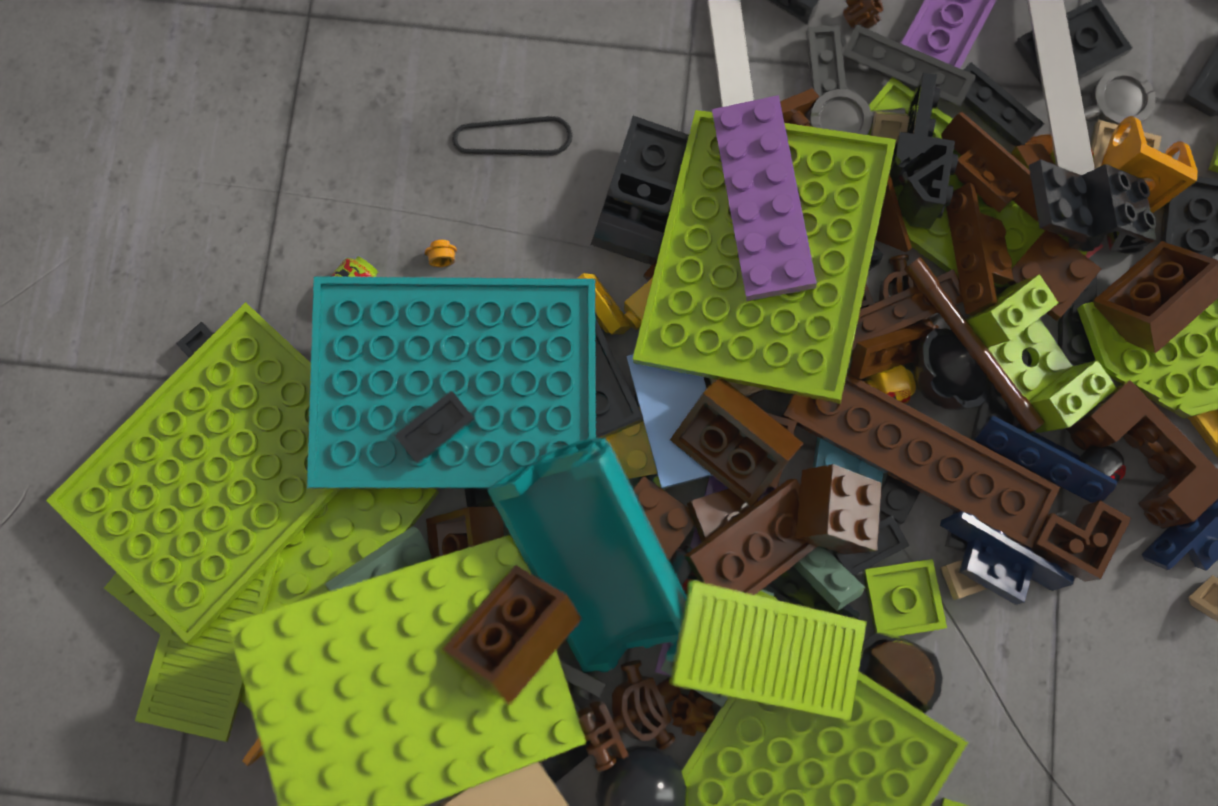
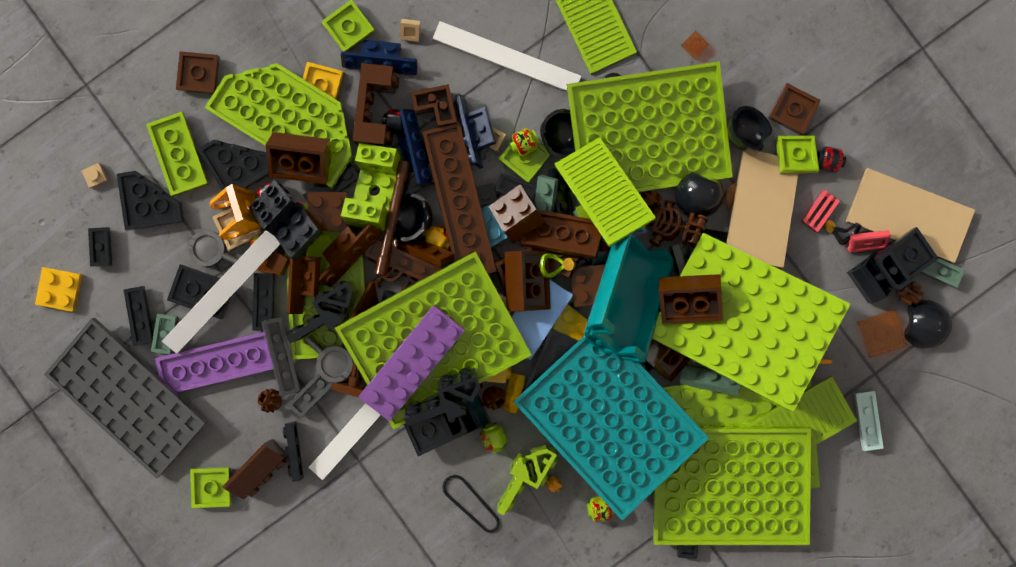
camera: 130 degrees left, 10 degrees up
(121, 739) = (868, 420): none -> light aqua plate
(434, 427) = (638, 408): black plate -> none
(487, 229) = (543, 458): none -> lime piece
(569, 229) = (493, 437): none -> lime head
(618, 273) = (493, 397): none -> reddish brown gear
(676, 199) = (450, 390): none -> black piece
(709, 515) = (568, 264): none -> lime piece
(889, 124) = (322, 338): tan plate -> none
(909, 666) = (556, 131): clear orange tile -> none
(928, 612) = (524, 142): none -> head
(1072, 696) = (504, 56): none -> white tile

